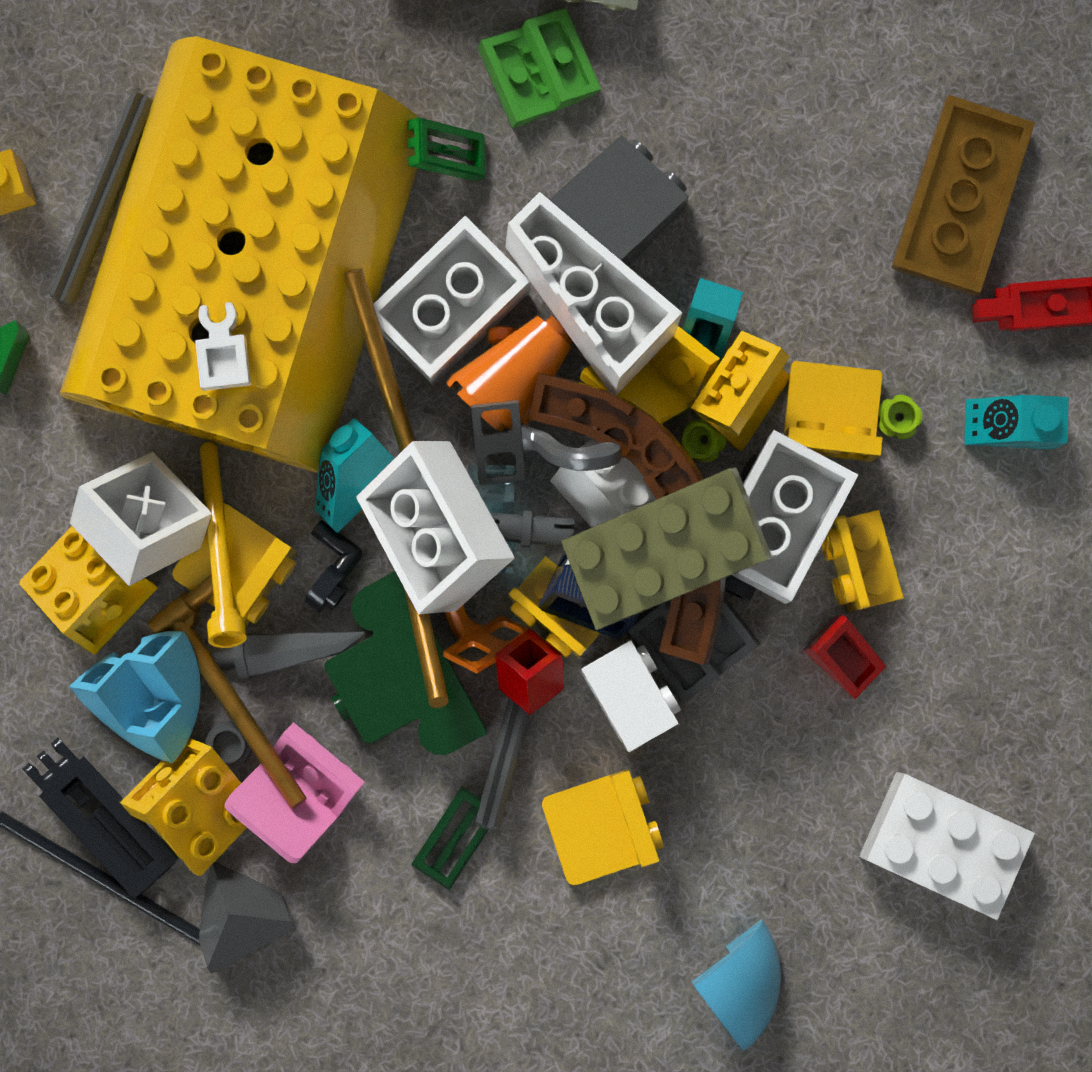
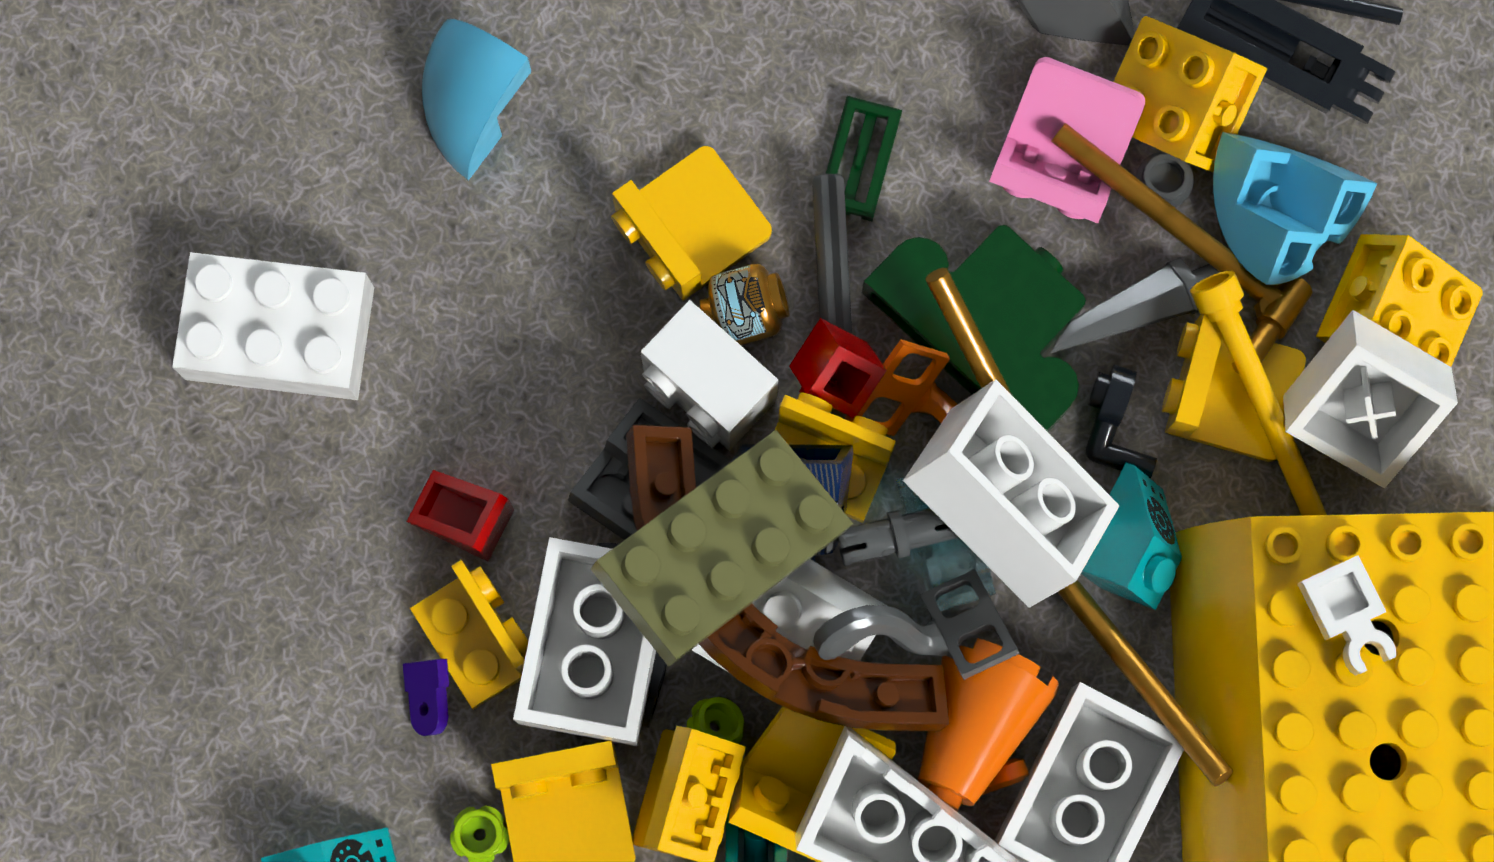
camera: 160 degrees right, 5 degrees down
(581, 747) = (747, 303): none -> head
(908, 530) = (427, 695): none -> dark purple piece

